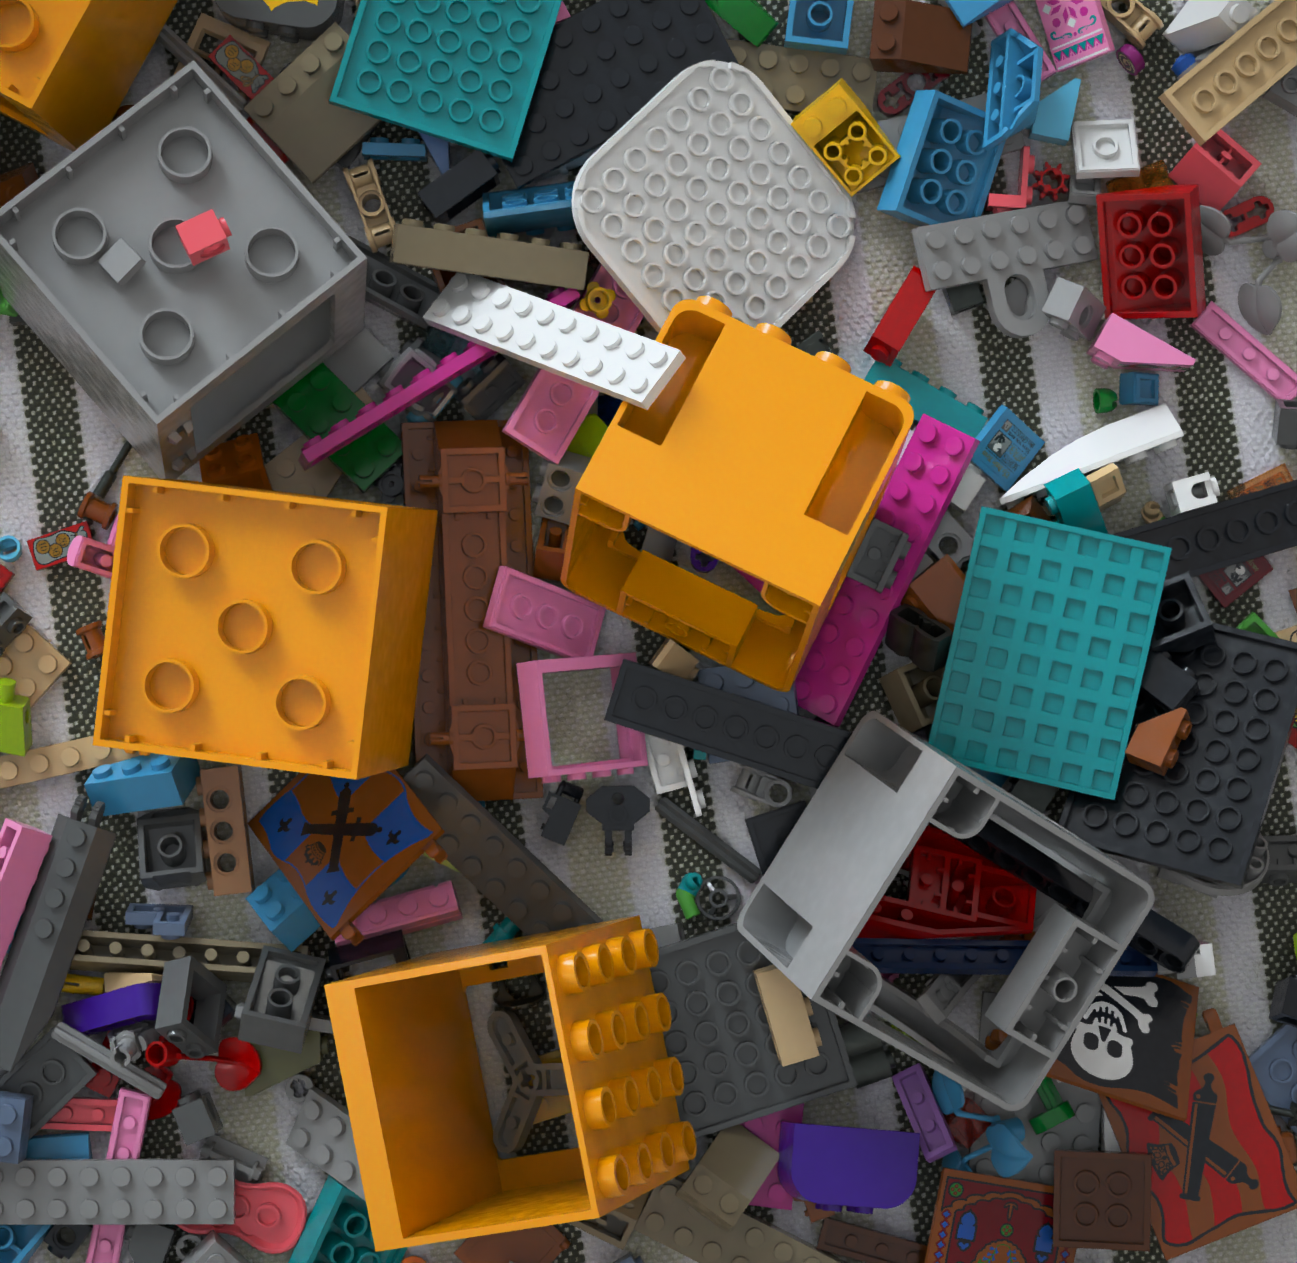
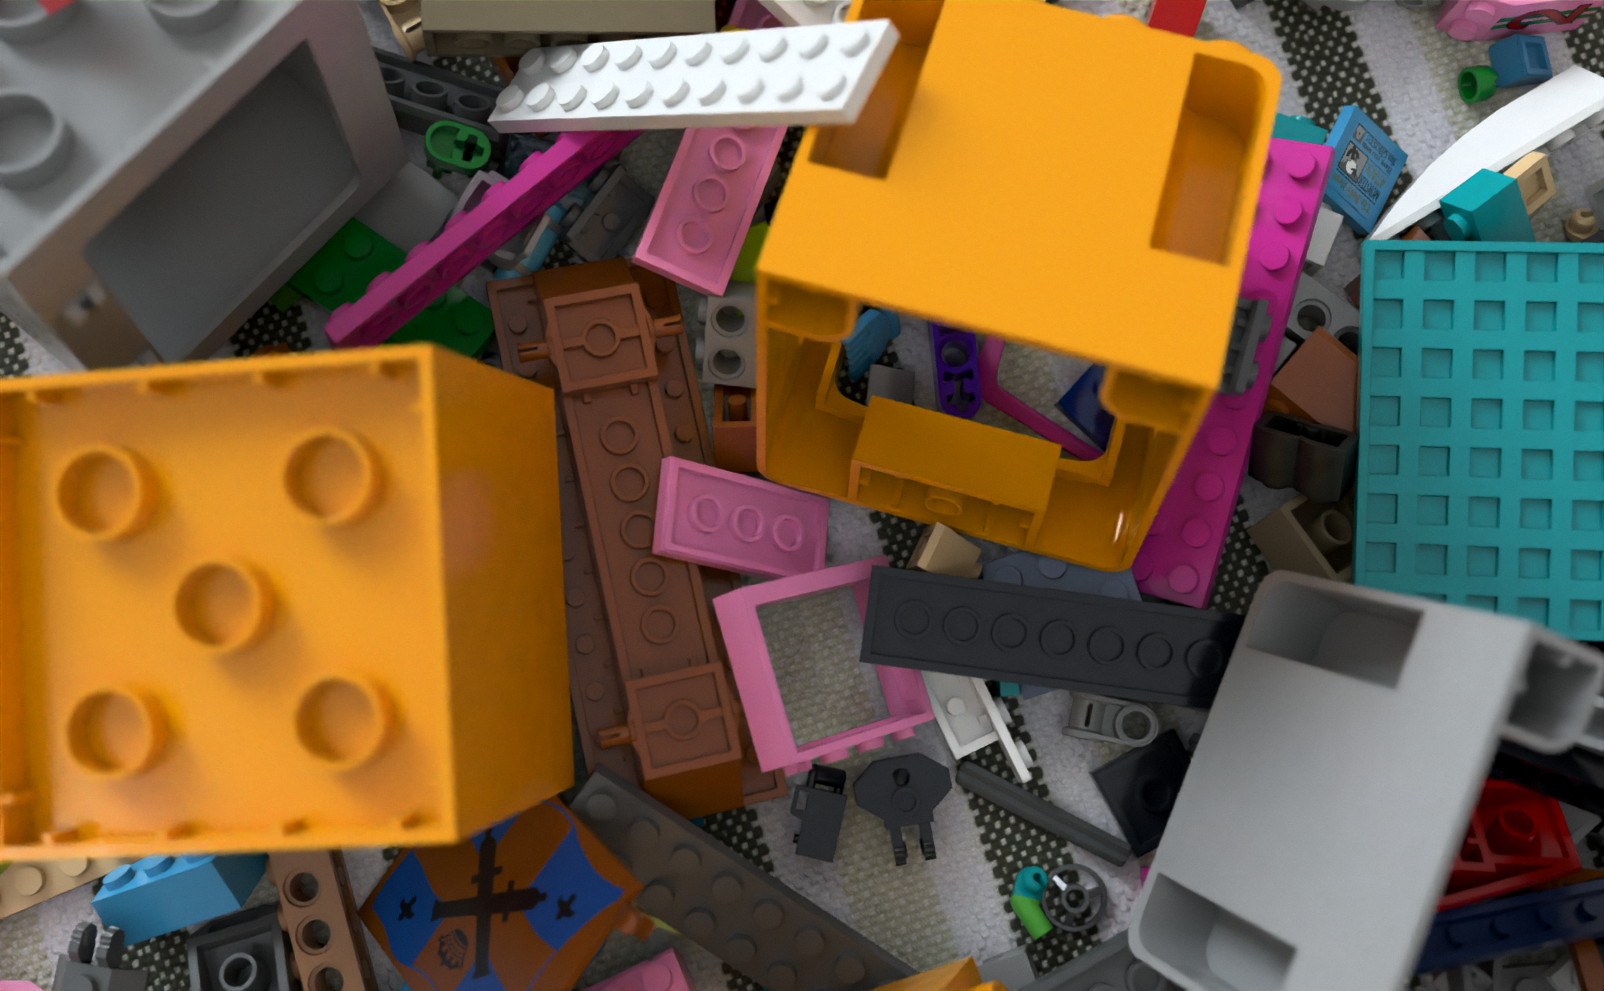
camera: 10 degrees left, 5 degrees down
(390, 327) = (445, 148): none -> green piece

